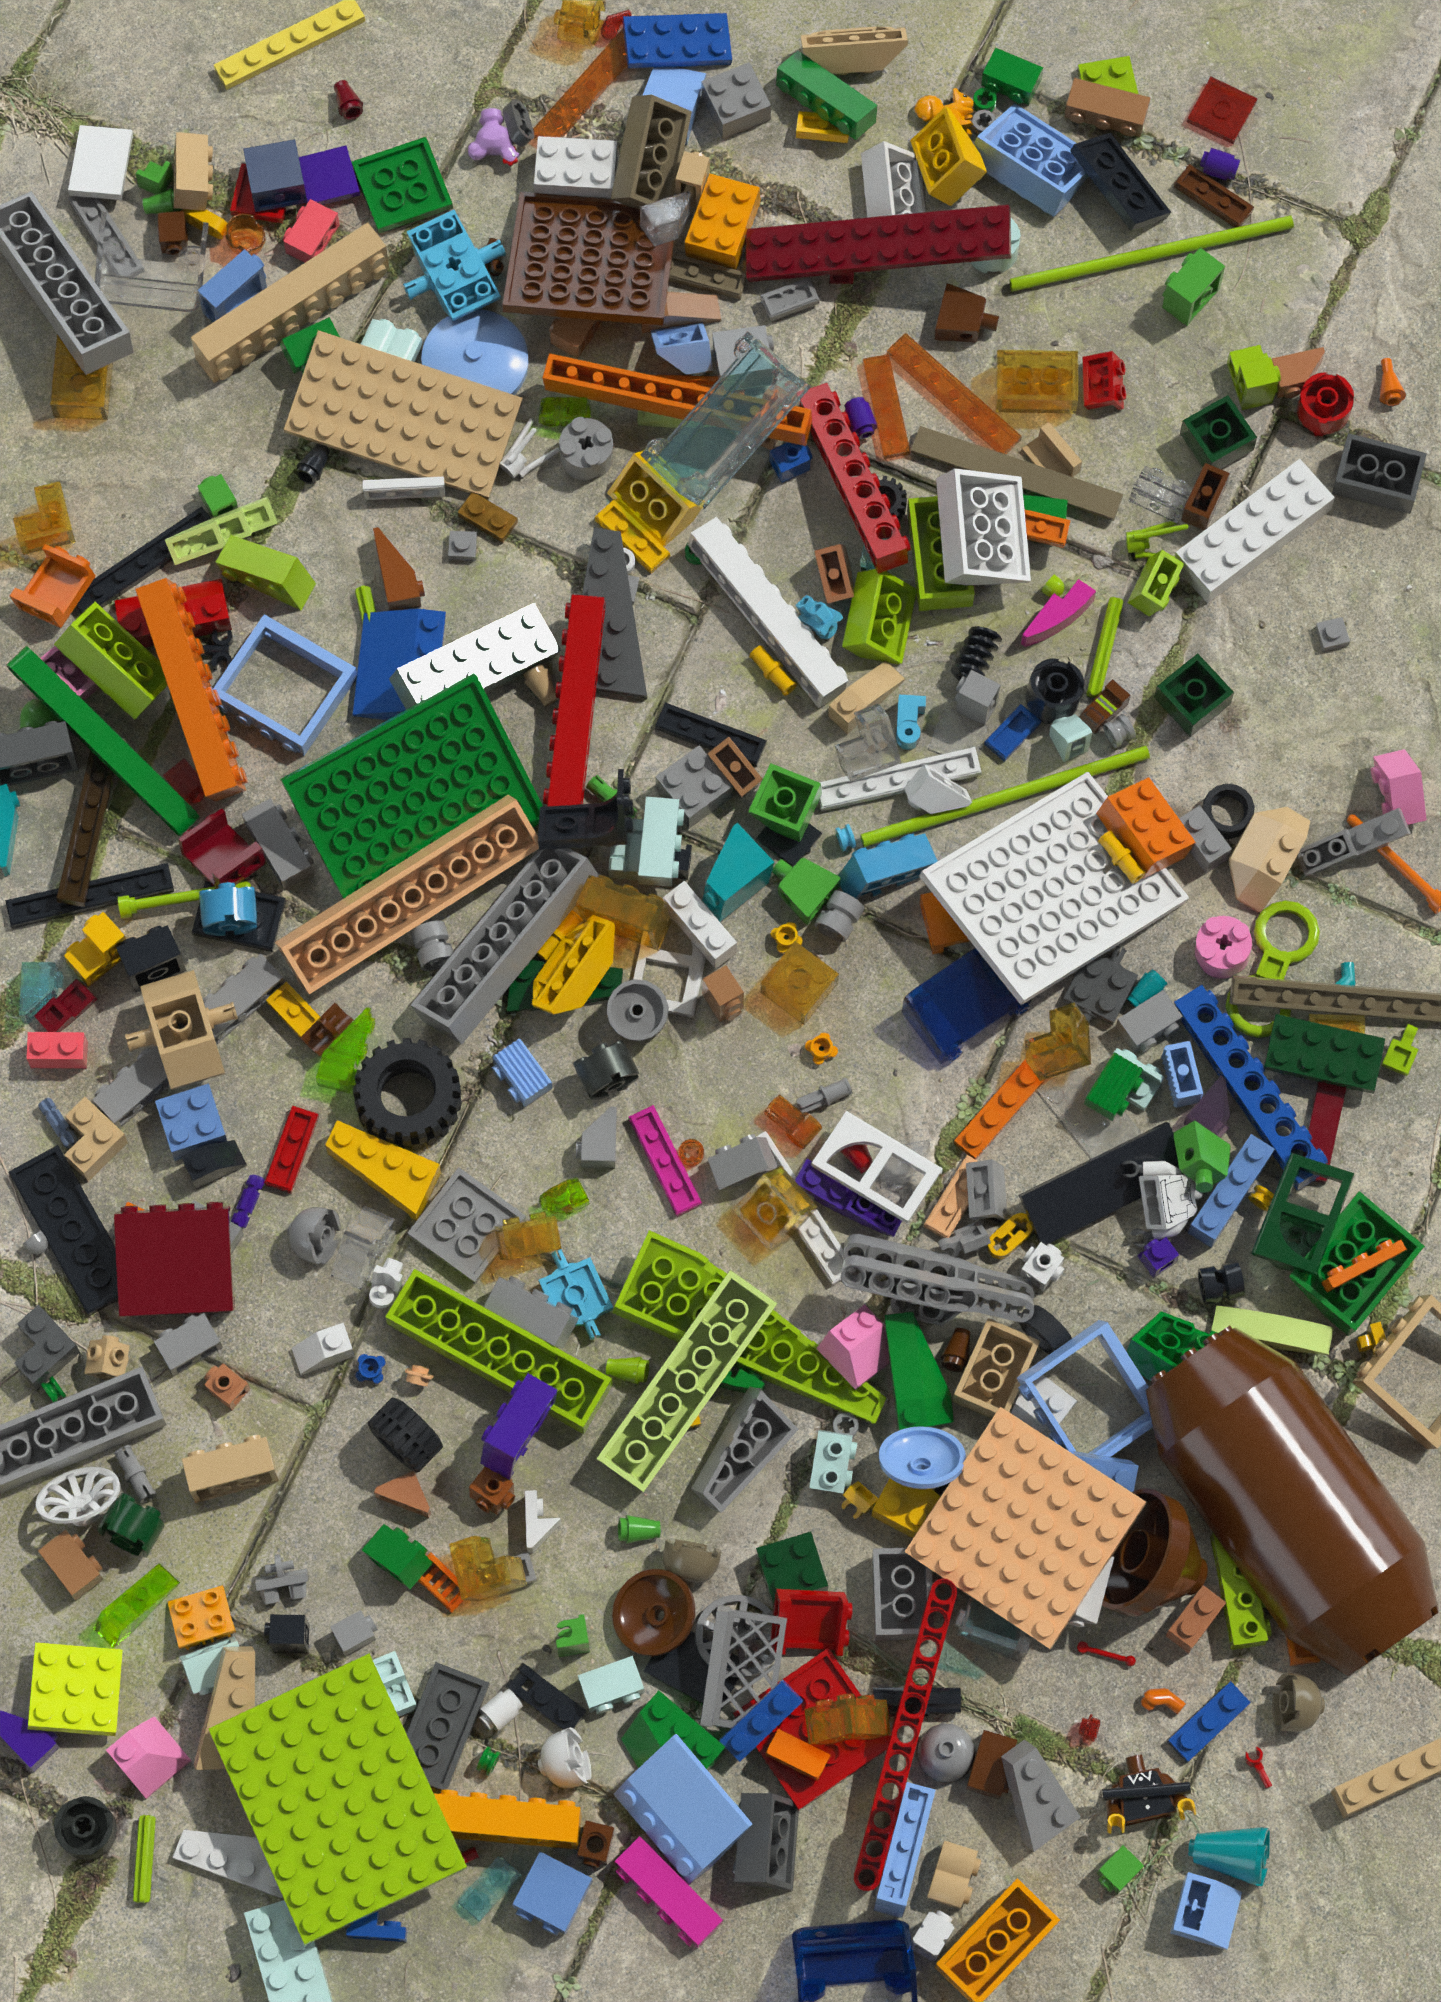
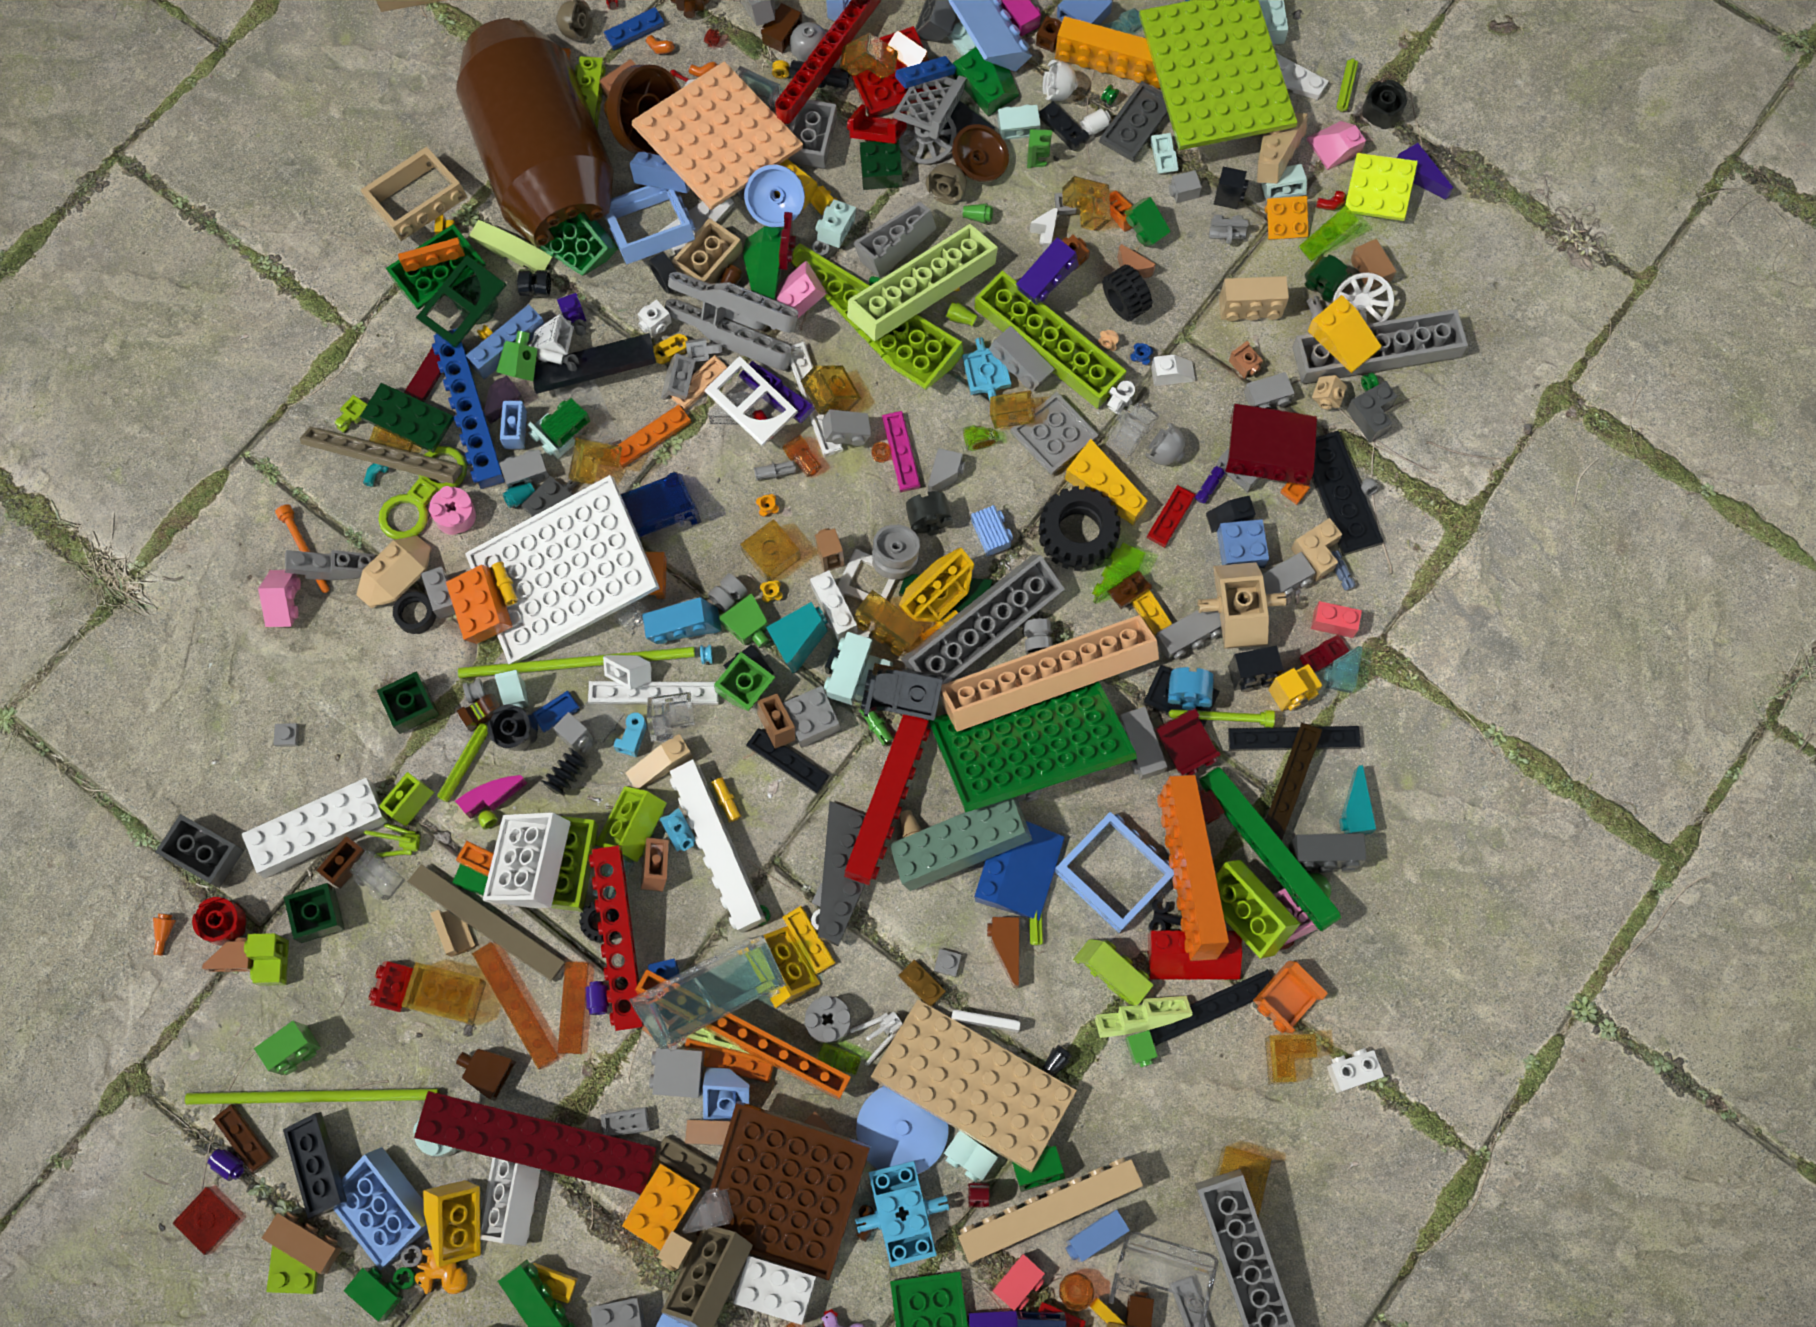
camera: 165 degrees left, 0 degrees up
(98, 1425) = (1344, 334): none -> yellow slope
(139, 1658) = (1332, 203): none -> red arm
(372, 304) = (978, 1195): none -> dark red leg
(889, 1412) = (788, 242): none -> dark red wing
(975, 1696) = (780, 69): none -> yellow bush
(1084, 1671) = (699, 71): none -> orange arm

